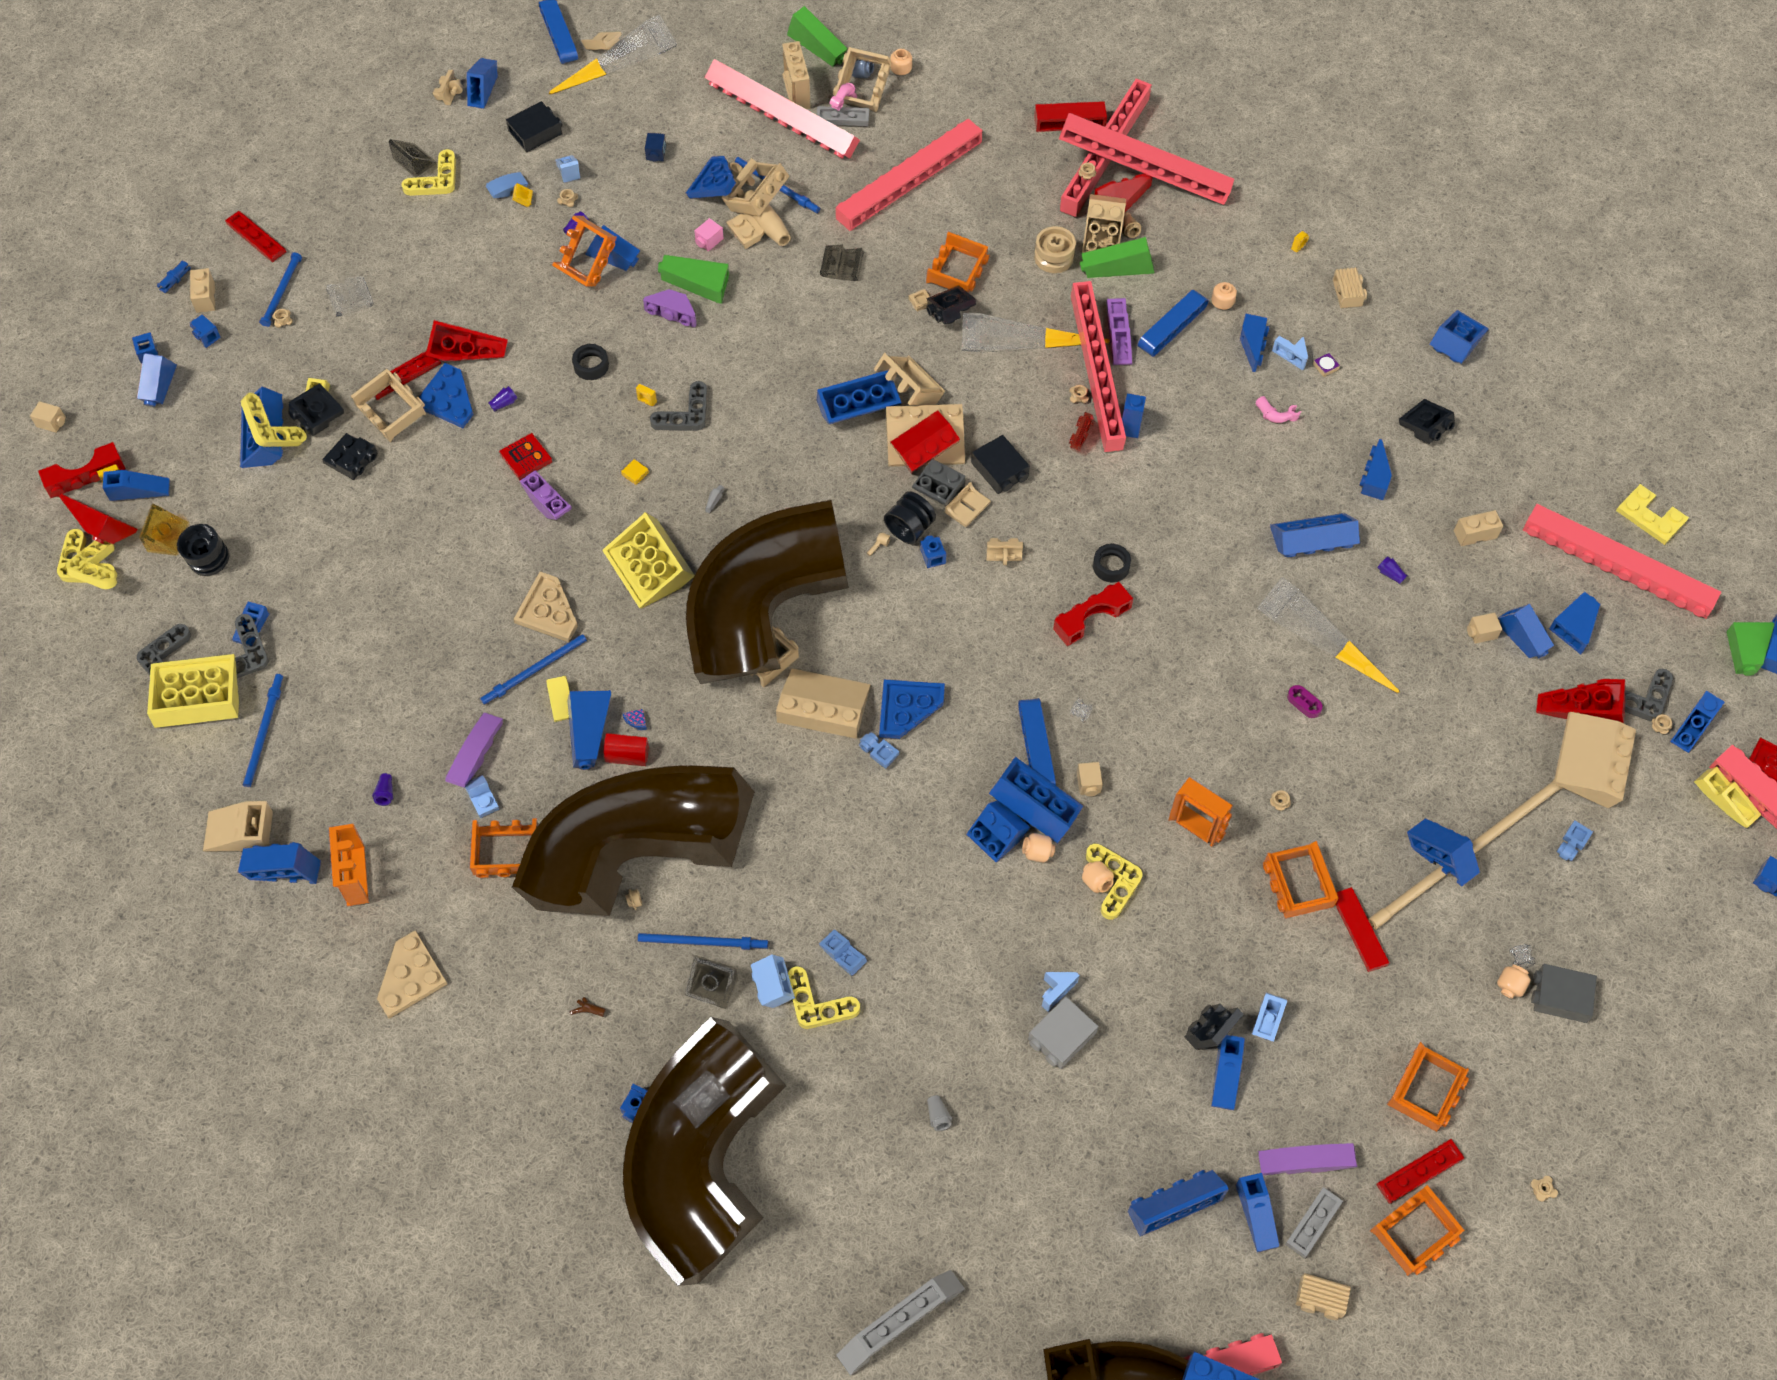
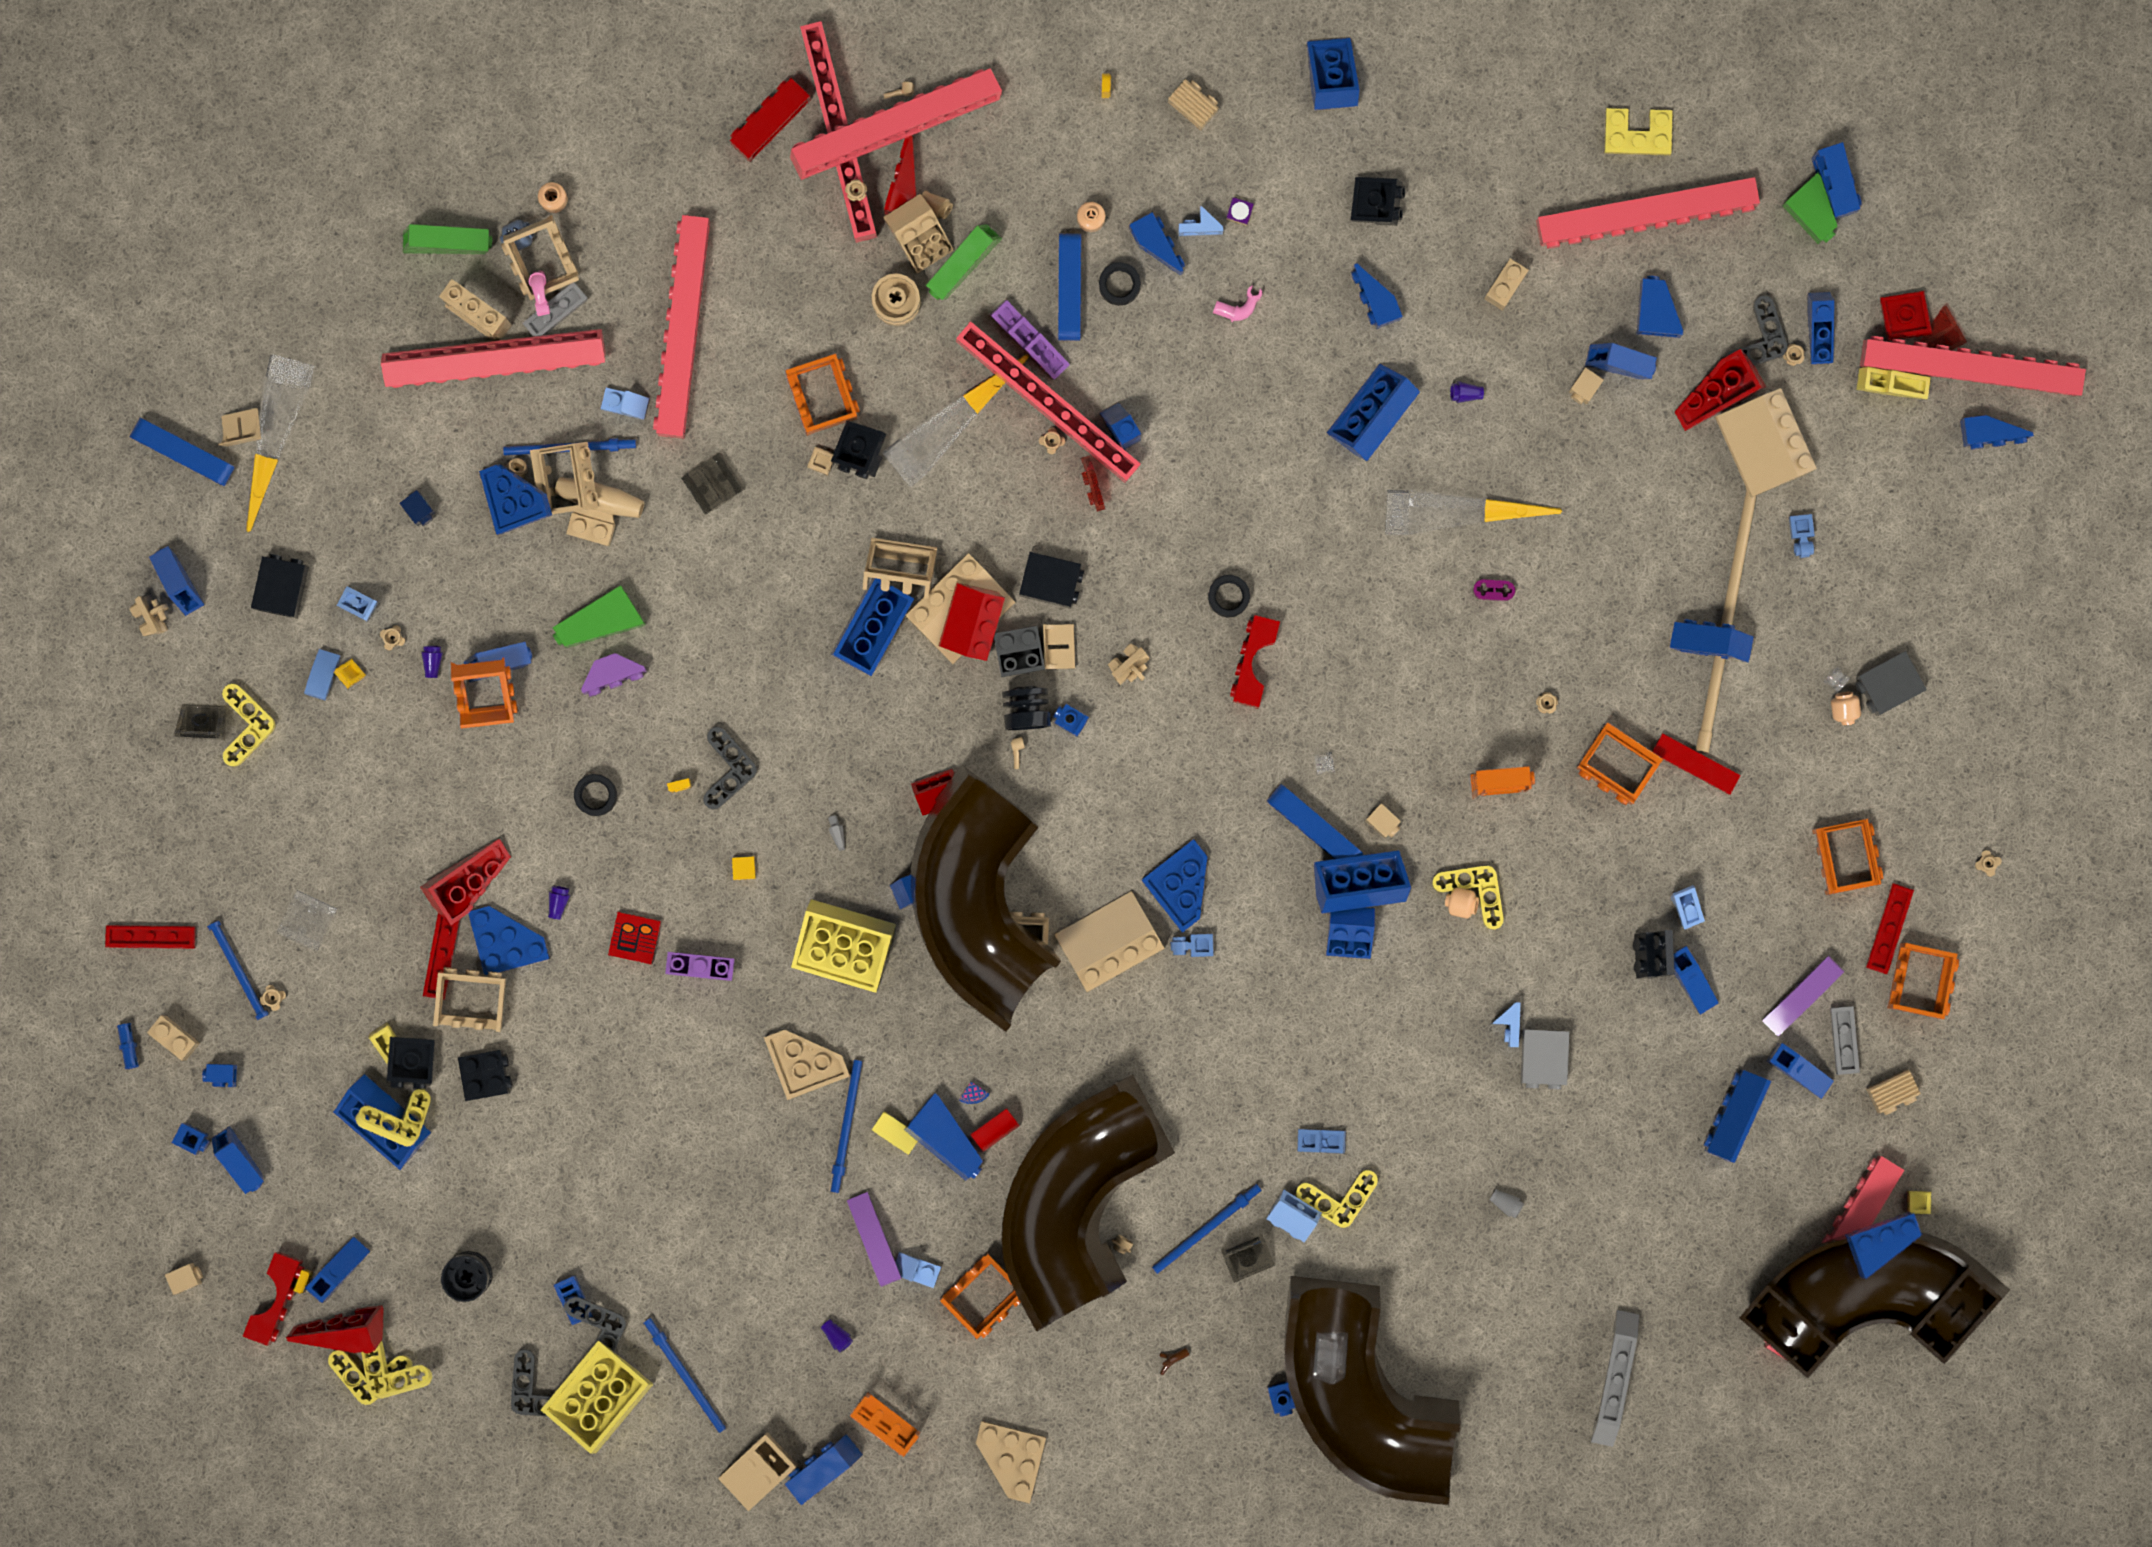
camera: 40 degrees left, 25 degrees up
(161, 531) = (409, 1288): clear yellow slope -> none
(708, 235) = (566, 565): bright pink brick -> none
(834, 187) = (625, 403): none -> light blue slope
(1038, 847) = (1395, 919): light nougat head -> none
(1208, 355) = (1124, 267): none -> black tyre

